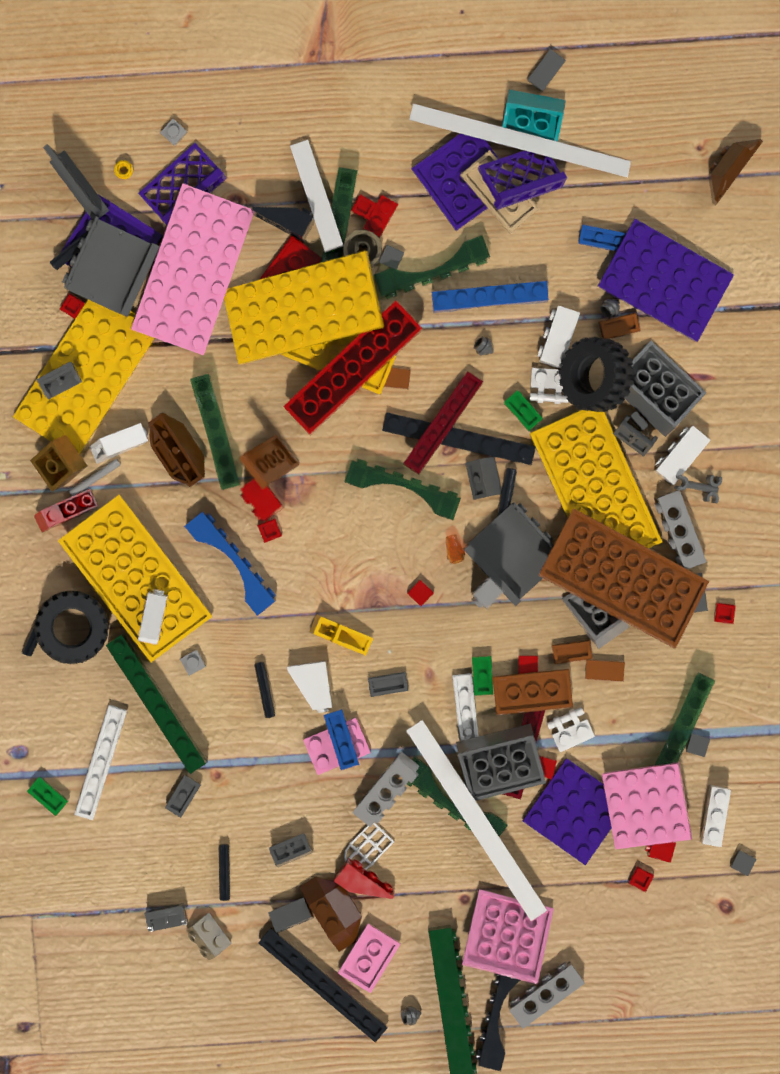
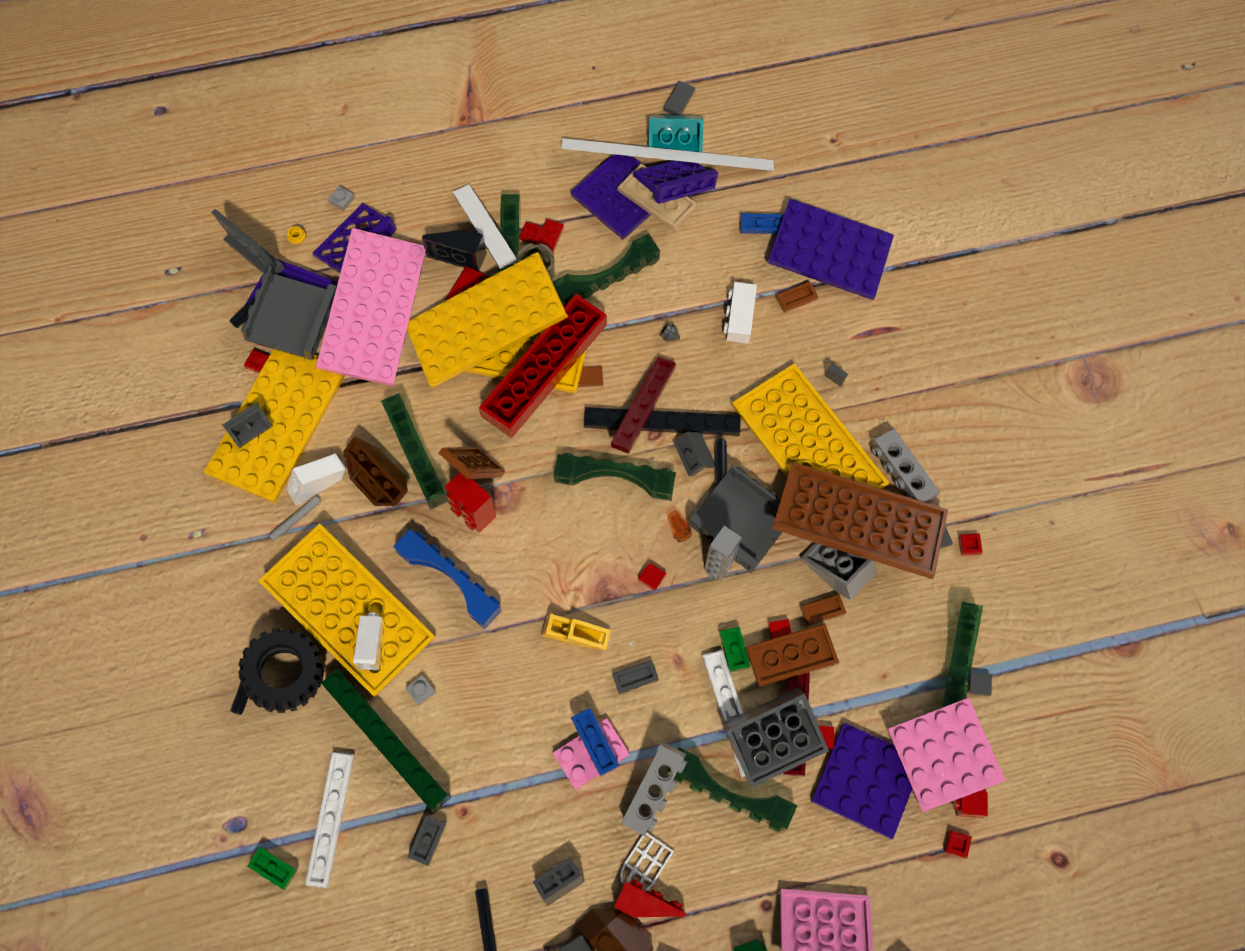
camera: 10 degrees left, 20 degrees down
(58, 463) = (253, 504): pearl gold brick -> none
(65, 510) = (264, 555): red slope -> none
(264, 689) = (502, 706): black axle -> none
(269, 530) = (484, 540): red tile -> none
(313, 684) = (554, 689): white slope -> none
(391, 257) = (564, 268): dark grey tile -> none
(476, 820) = (764, 809): white sticker -> none
(490, 296) = (698, 278): blue arch -> none
(523, 410) = (720, 384): green plate -> none
(549, 380) = (741, 353): white plate -> none
(573, 734) = (845, 696): white plate -> none
(604, 670) = (862, 623): dark orange tile -> none
(610, 308) = (784, 281): dark grey plate -> none
(616, 378) = (805, 339): black tyre -> none
(634, 437) = (836, 388): dark grey hinge -> none
(662, 389) = (847, 344): dark grey slope -> none
(681, 454) = (886, 398): white brick -> none
(710, 488) = (922, 423): dark grey bar -> none
(715, 815) = (1020, 755): white brick -> none
(730, 166) = (866, 146): reddish brown wedge -> none
(743, 863) = (1064, 805): dark grey tile -> none

